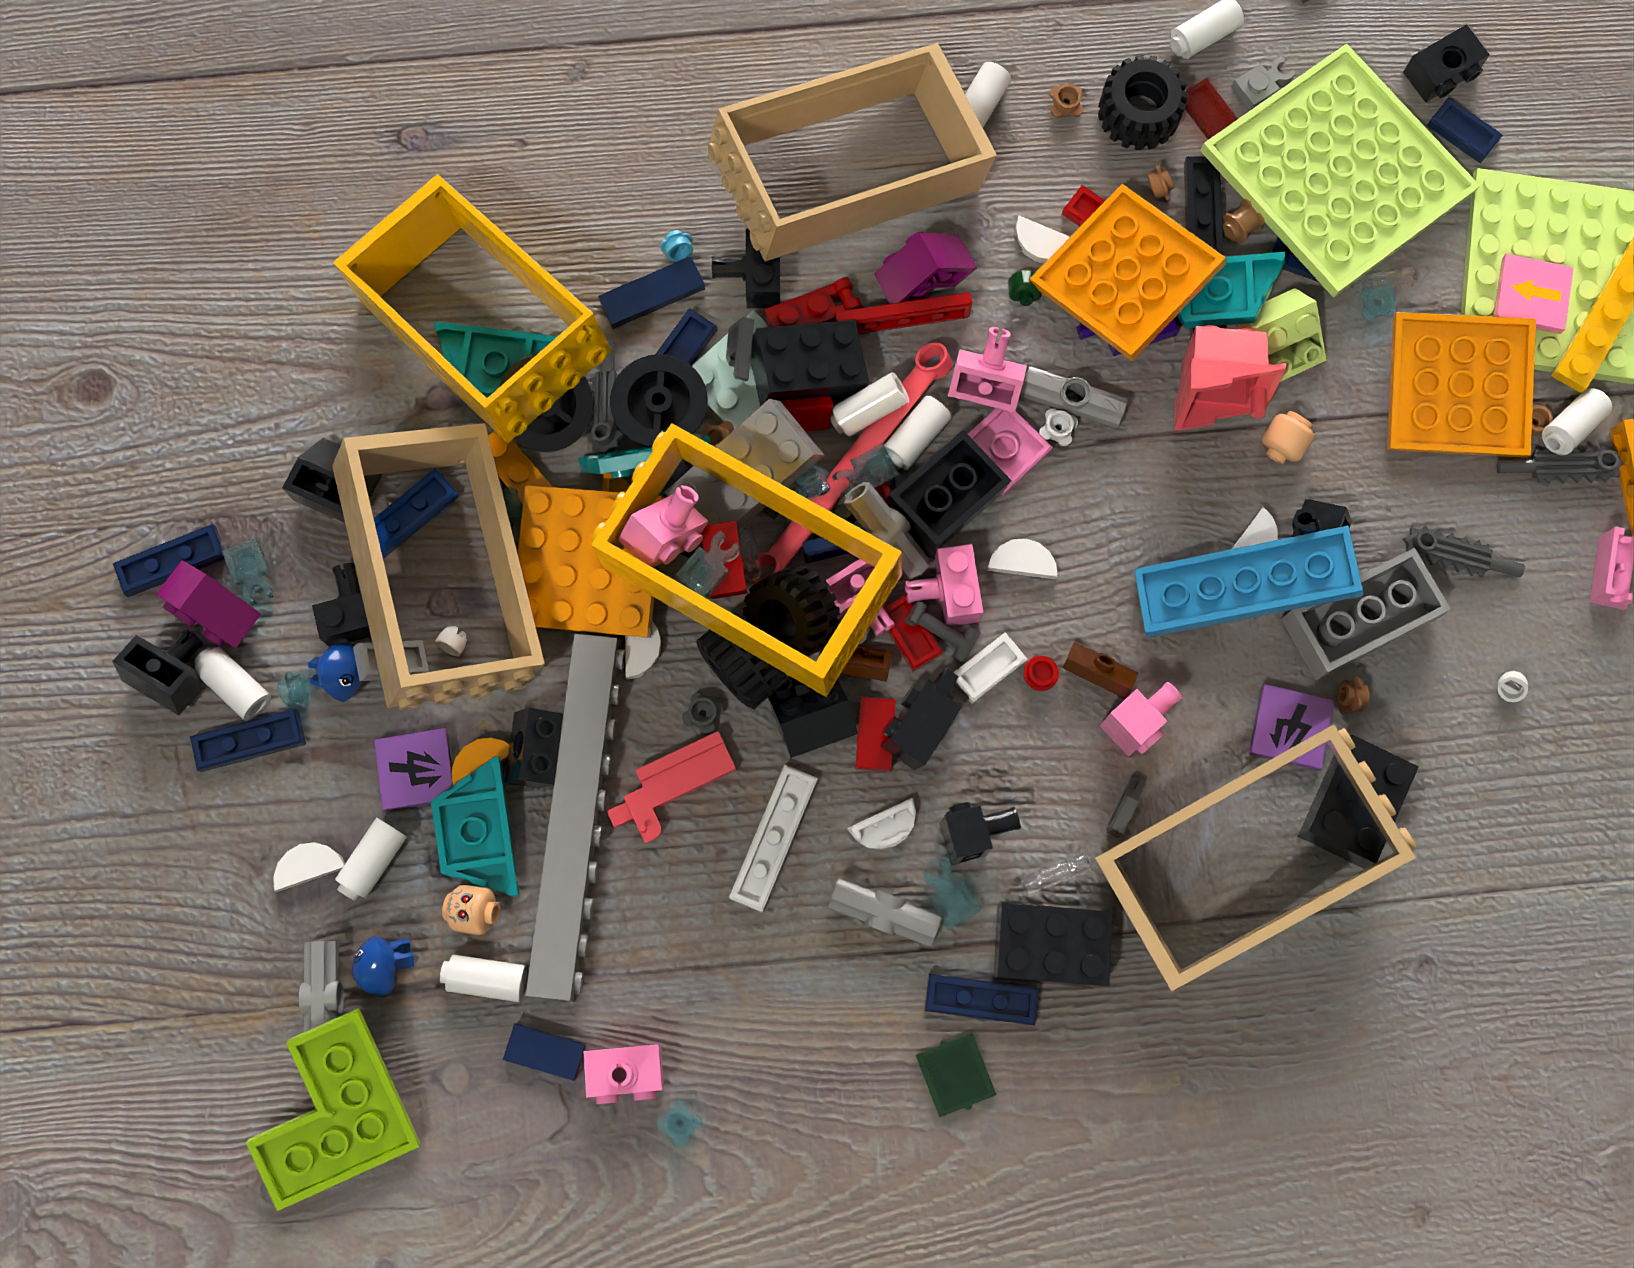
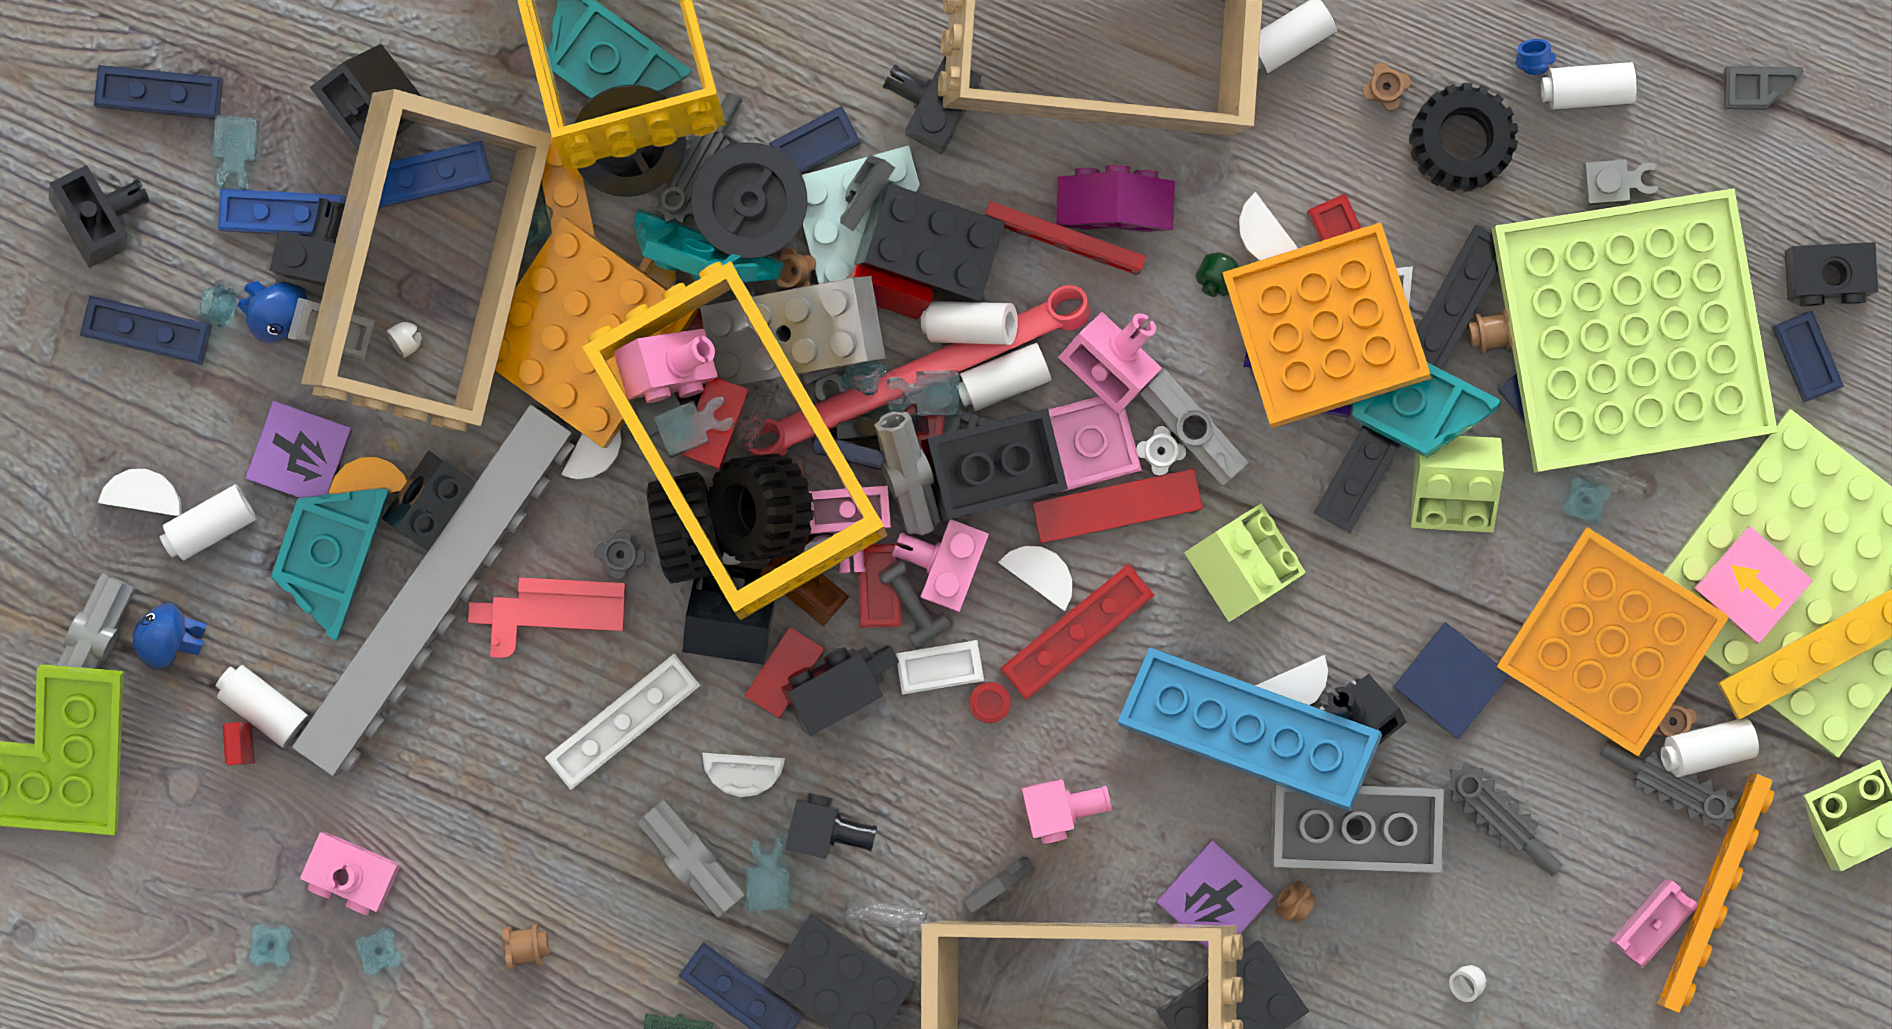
camera: 30 degrees right, 10 degrees up
(200, 599) = (171, 166): magenta brick -> none
(231, 683) = (158, 262): white brick -> none
(295, 604) = (270, 211): none -> blue tile
(471, 910) = (282, 630): light nougat head -> none
(481, 1015) = (238, 743): none -> red tile
(544, 1052) = (283, 809): dark blue tile -> none
(580, 1164) = (261, 953): none -> clear light blue plate
(651, 292) = (812, 64): dark blue tile -> none
(677, 245) = (867, 27): medium azure plate -> none
(794, 1053) = (525, 946): none -> medium nougat brick
(814, 306) = (971, 180): red plate -> none
(1049, 483) = (1117, 506): none -> red tile
(1074, 588) = (1077, 631): none -> red tile
(1100, 670) = (1051, 733): reddish brown plate -> none
(1157, 29) = (1534, 56): none -> blue plate
(1160, 183) = (1430, 238): medium nougat plate -> none
(1167, 471) = (1245, 562): none -> yellowish green slope
(1208, 109) = (1538, 181): clear red tile -> none
(1225, 377) = (1352, 501): coral piece -> none
(1287, 437) = (1394, 596): light nougat head -> none
(1363, 477) = (1451, 680): none -> dark blue tile

